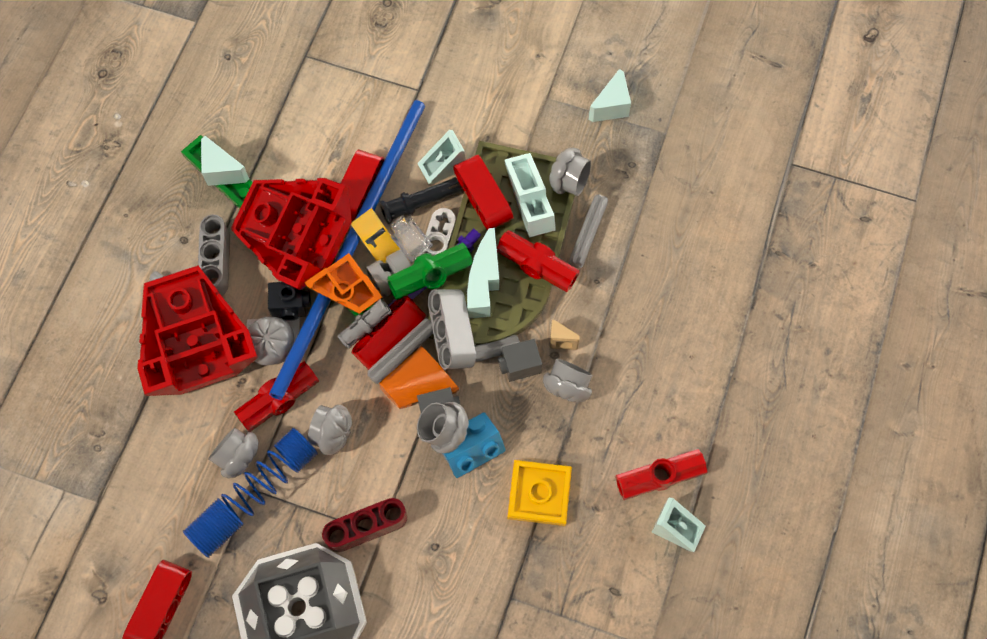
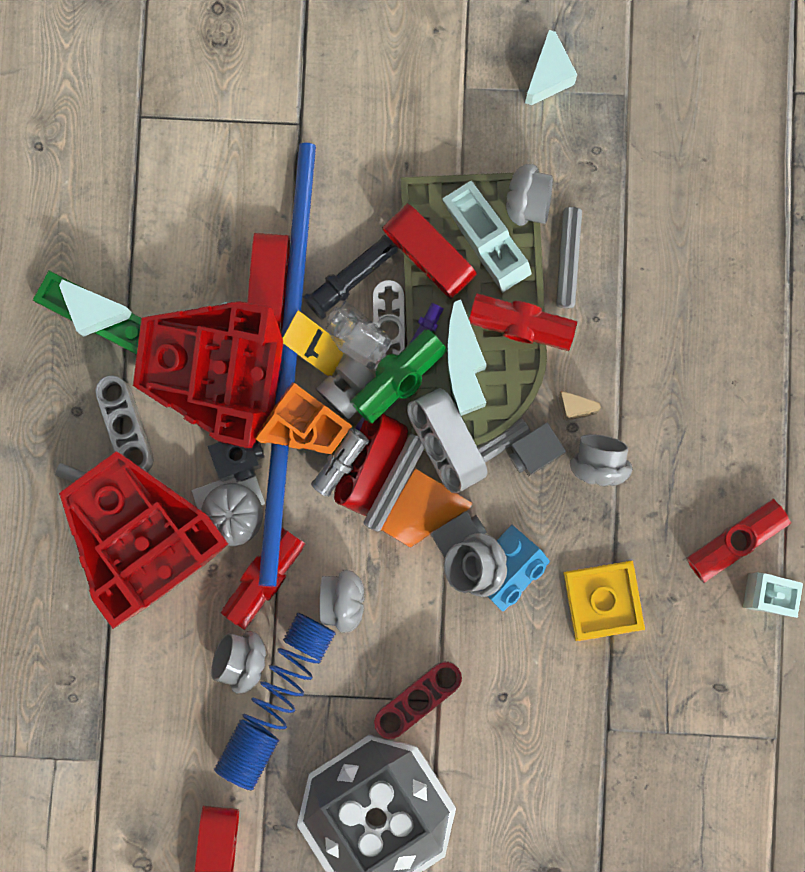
camera: 10 degrees left, 15 degrees up
(441, 158) = (362, 216): light aqua slope -> none

